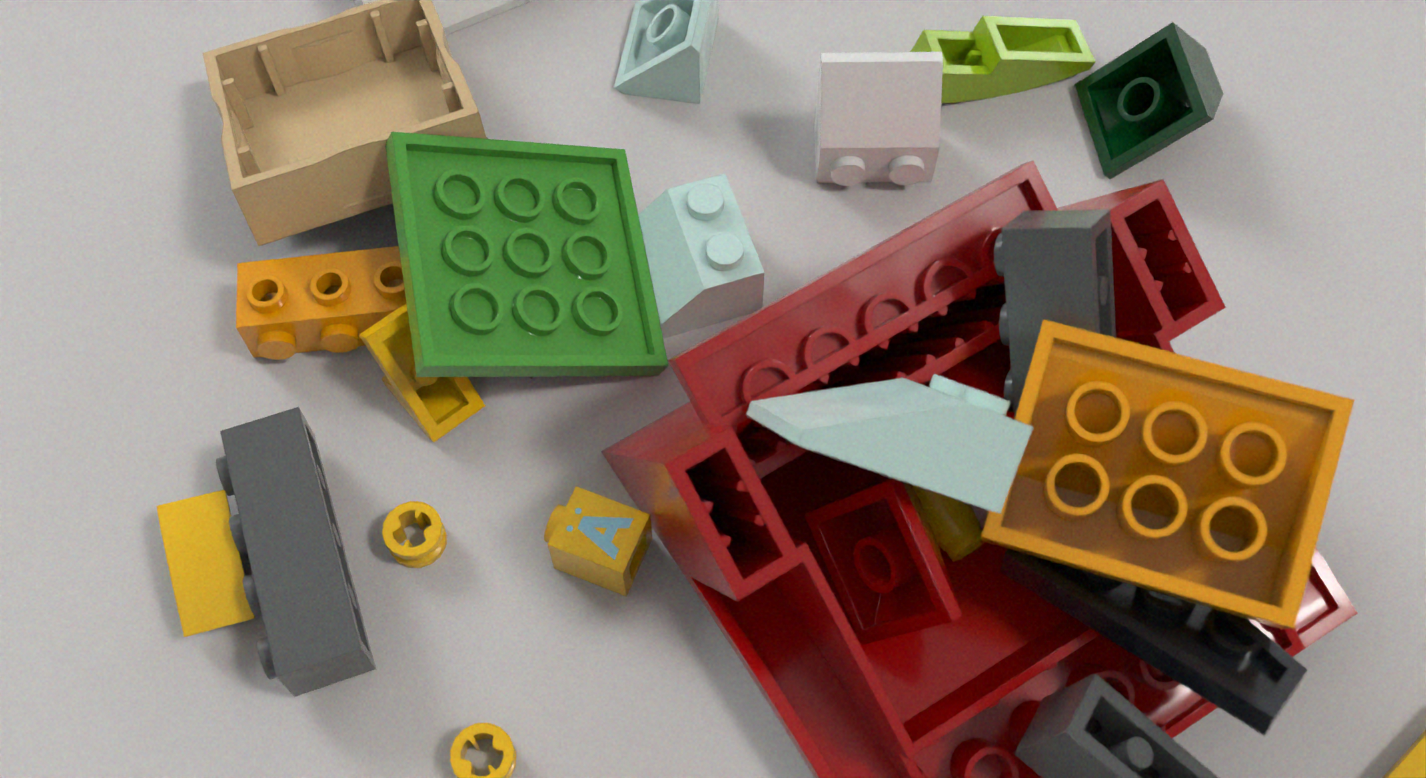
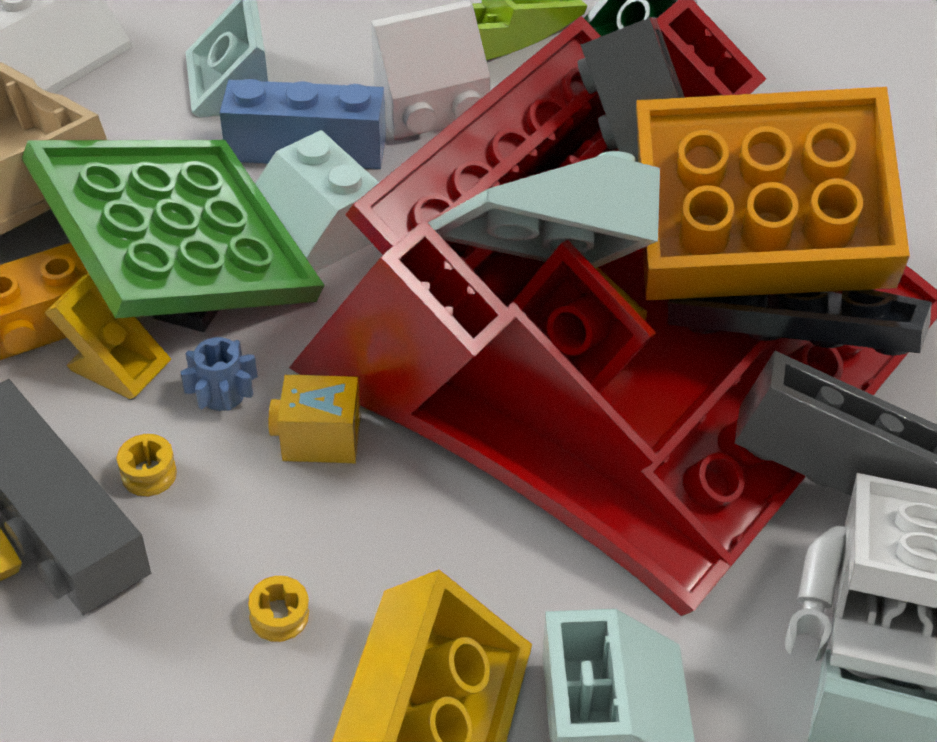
camera: 20 degrees left, 15 degrees down
(519, 449) = (219, 374): none -> medium blue gear
(706, 137) = (271, 115): none -> medium blue brick

